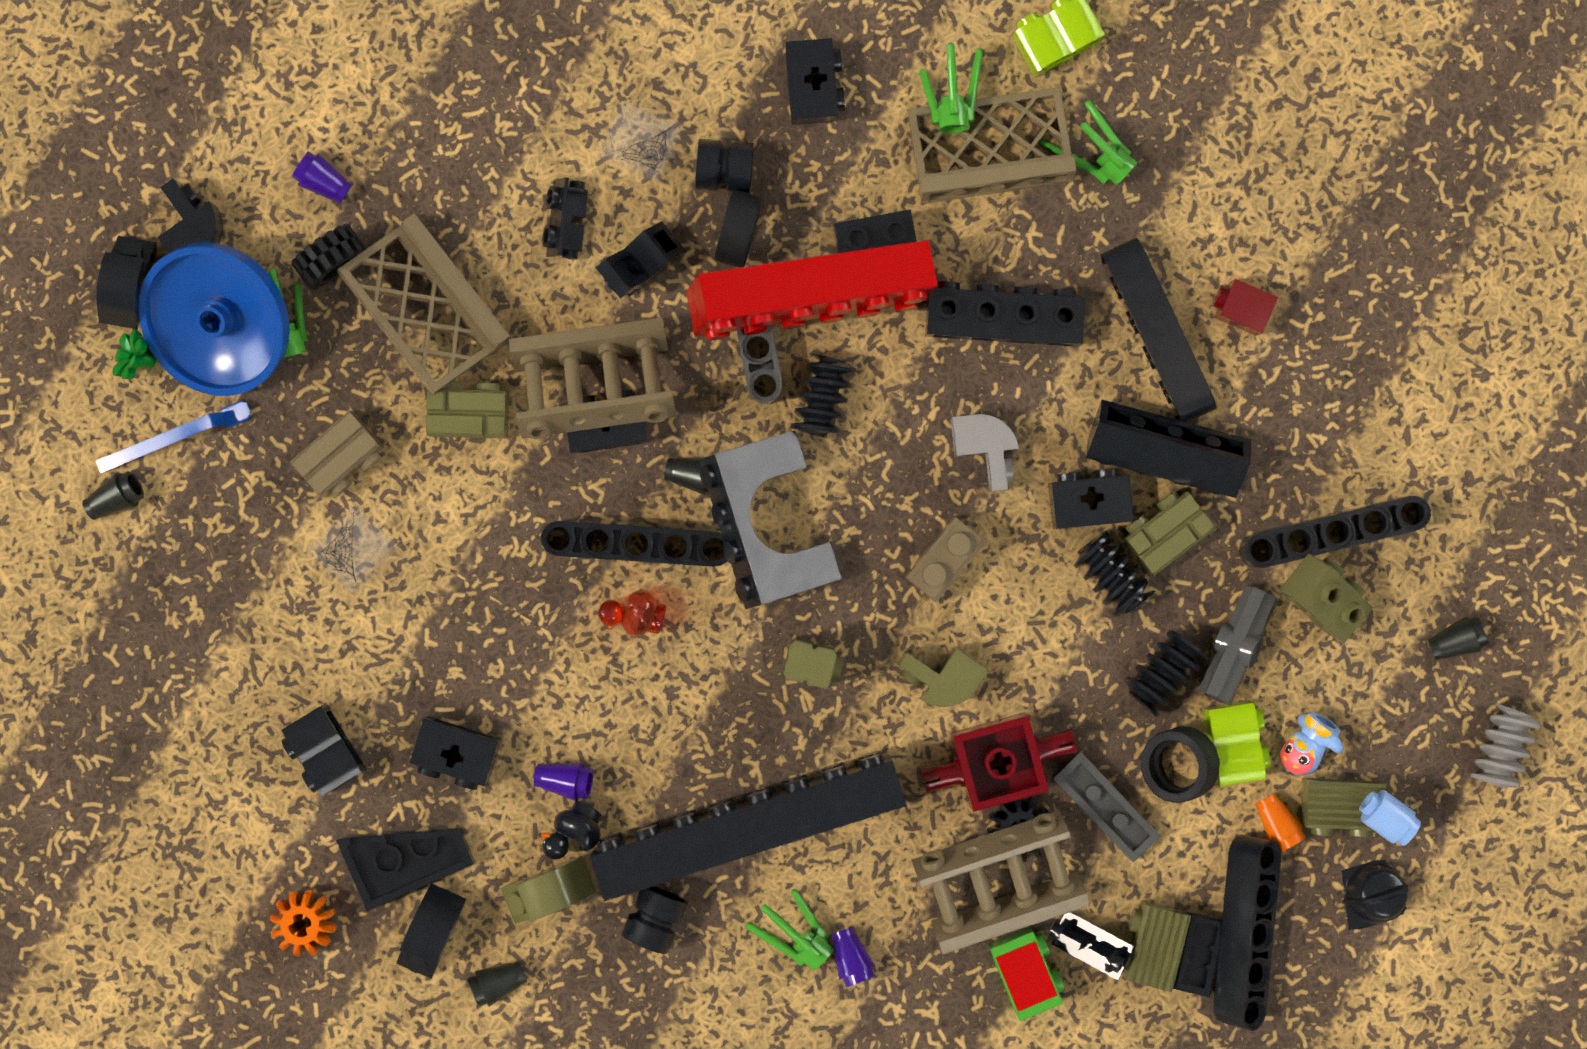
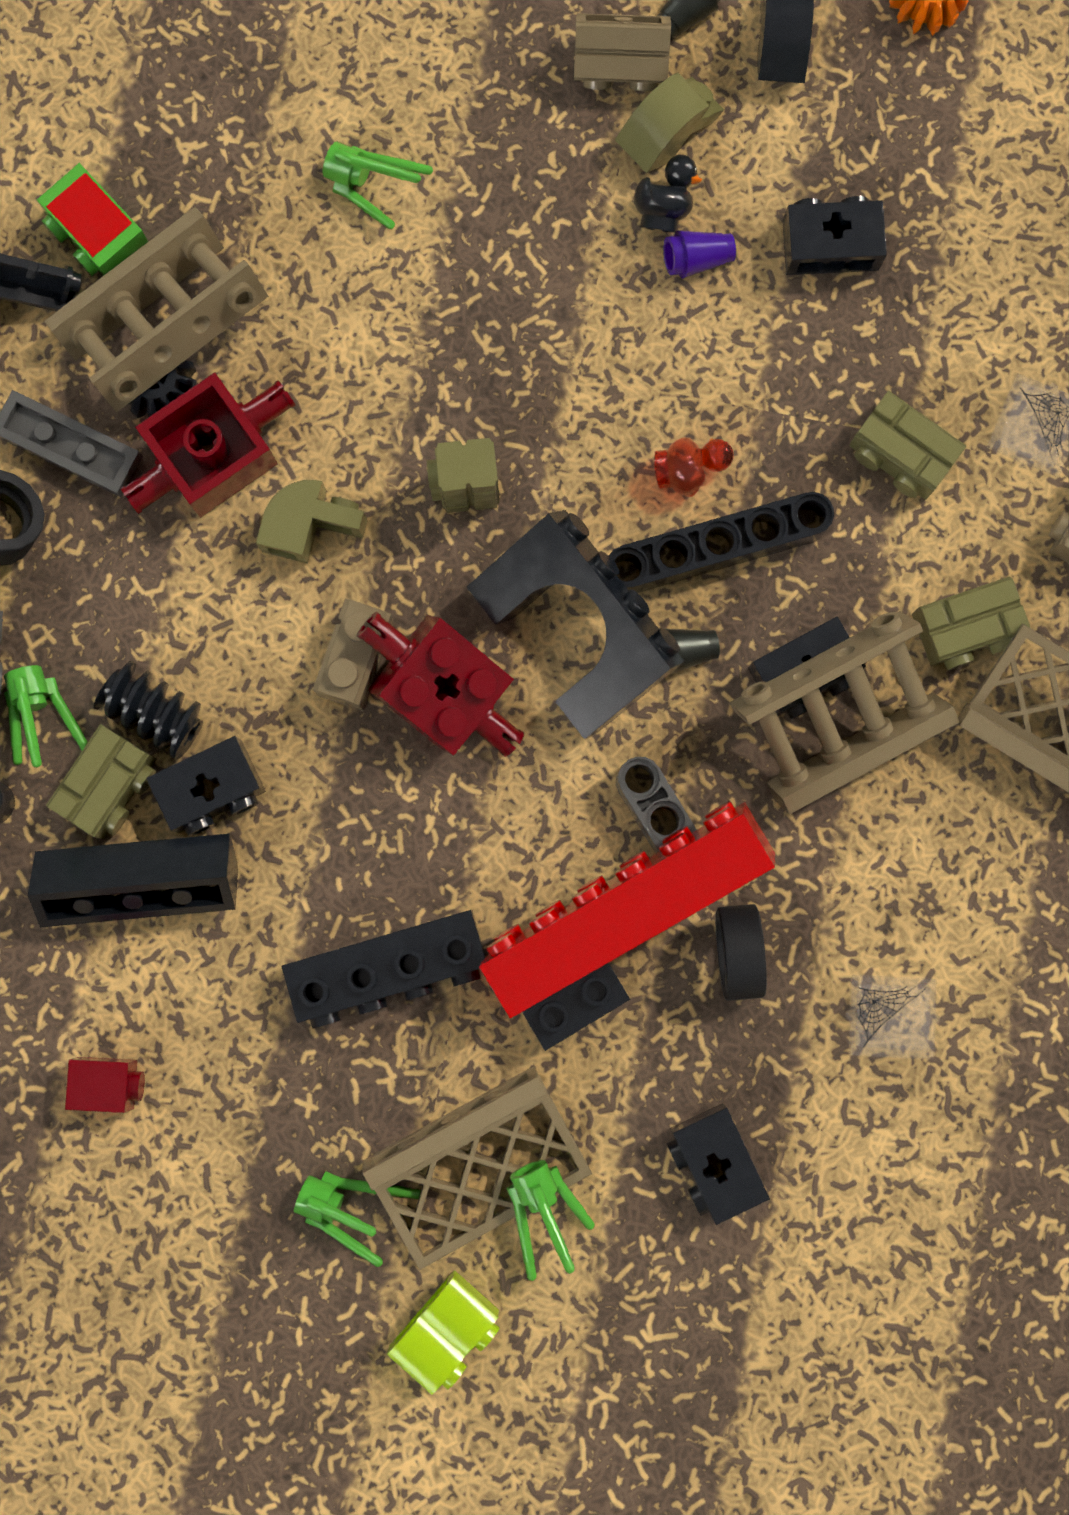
camera: 155 degrees right, 5 degrees down
(322, 750) = (982, 185): black brick -> none
(403, 862) = (844, 97): black wing -> none
(464, 566) = (906, 447): none -> olive brick
(564, 204) = (952, 908): black hinge -> none
(564, 961) = (622, 50): none -> dark tan brick
(641, 260) = (841, 871): black brick -> none
(654, 919) = (539, 127): black wheel -> none
(724, 166) = (784, 1022): black wheel -> none
(746, 827) = (471, 266): black brick -> none
(823, 396) = (565, 792): black piece -> none
(851, 958) = (296, 170): dark purple cone -> none
(883, 488) = (471, 682): none -> dark red brick
(986, 436) = (353, 817): light grey brick -> none
(1160, 330) = (196, 1019): black beam -> none
(1164, 671) = (50, 617): black piece -> none
(1203, 622) = (28, 693): none -> bright green plant

